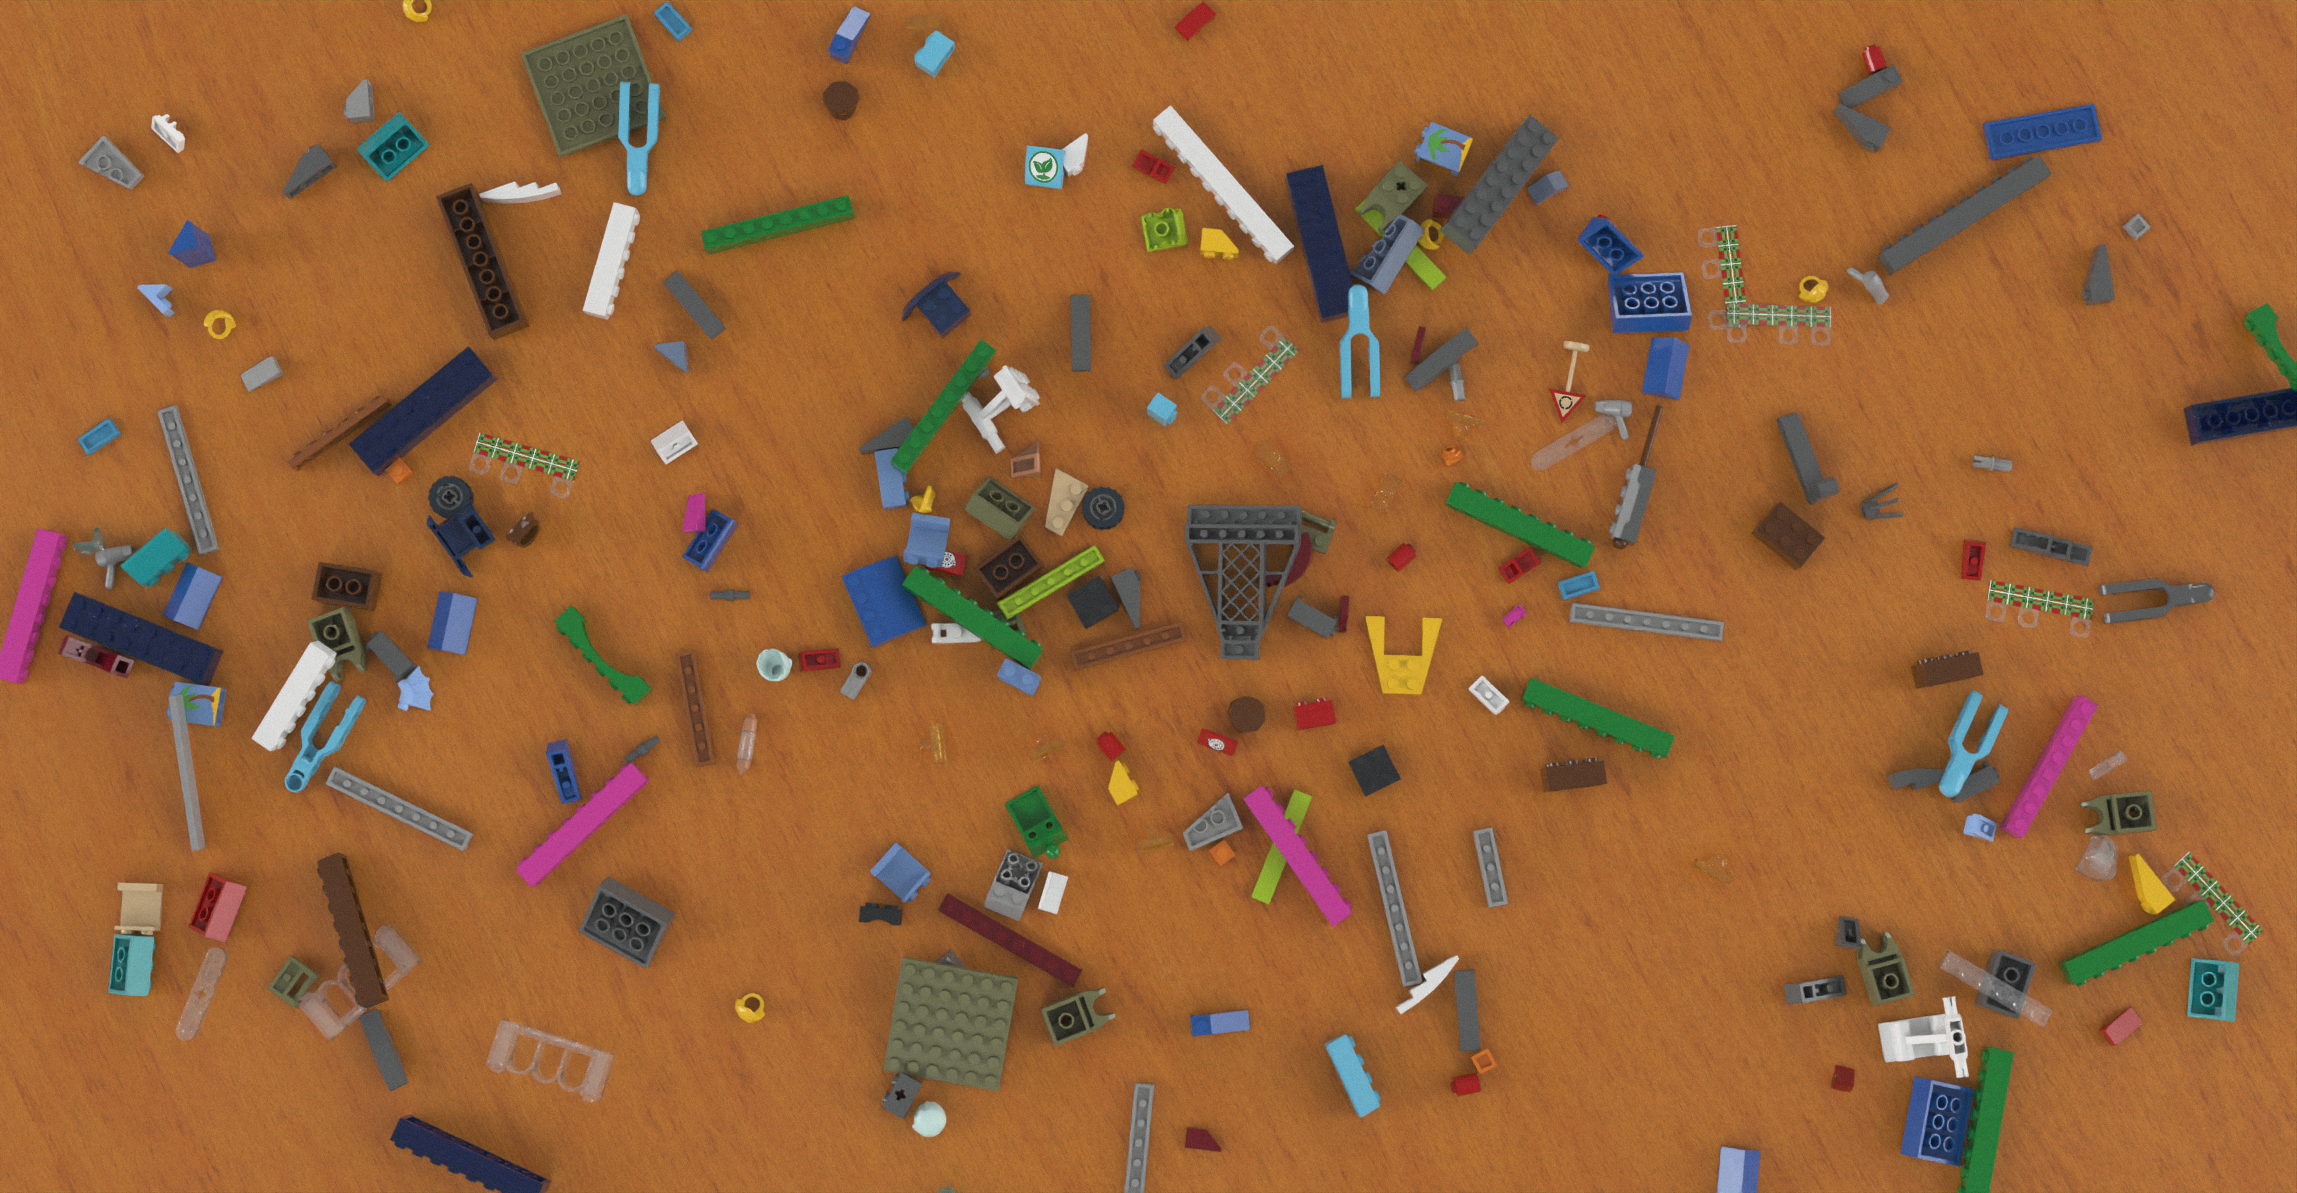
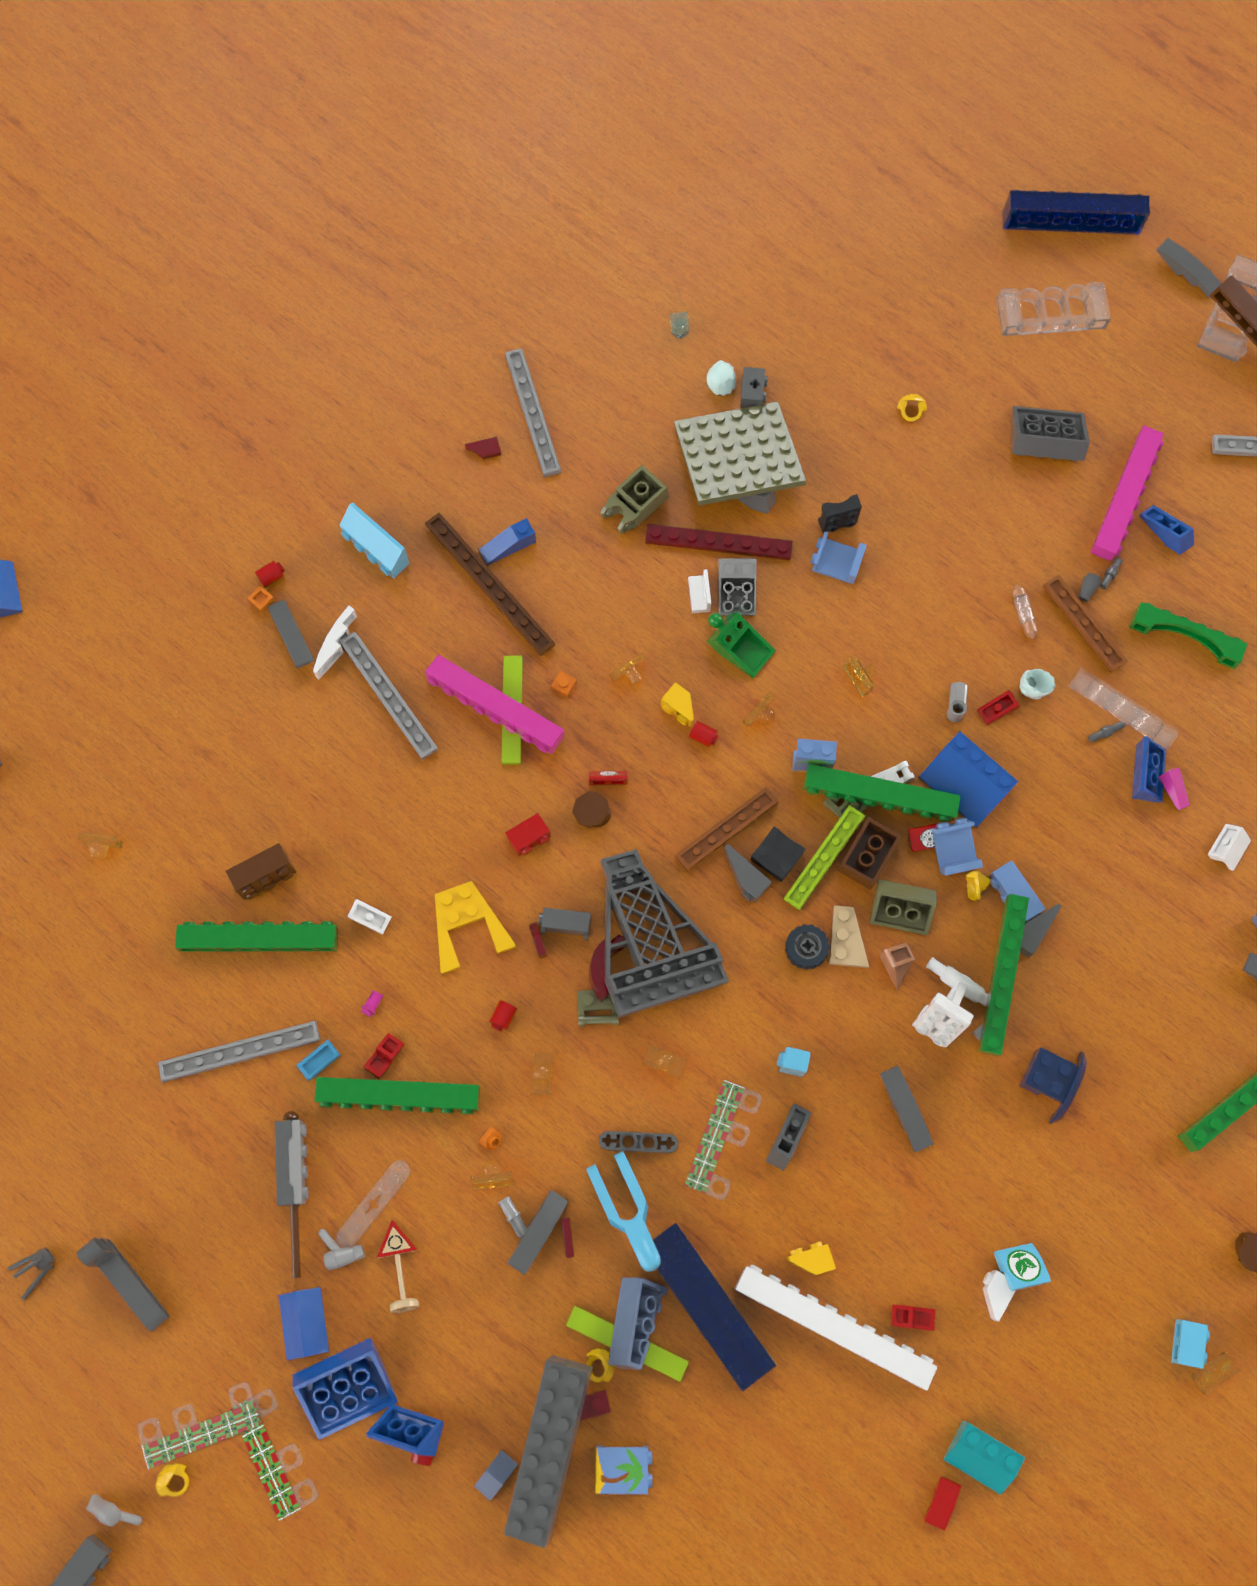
camera: 160 degrees right, 10 degrees down
(671, 743) = (1089, 586): none -> dark grey cone
(707, 605) = (1124, 708): none -> clear fence
(1145, 40) = (984, 1458): none -> teal slope
(1164, 229) = (871, 1253): lime slope -> none
(1214, 824) = (581, 703): light grey wing -> none
(1254, 986) = (490, 584): none -> reddish brown plate
(1323, 403) = (638, 1142): none -> dark grey beam
(1374, 770) = (452, 806): black brick -> none
(1391, 201) = (656, 1383): olive brick -> none
(1490, 867) = (313, 764): light grey plate -> none
(1788, 535) = (121, 1195): reddish brown brick -> none

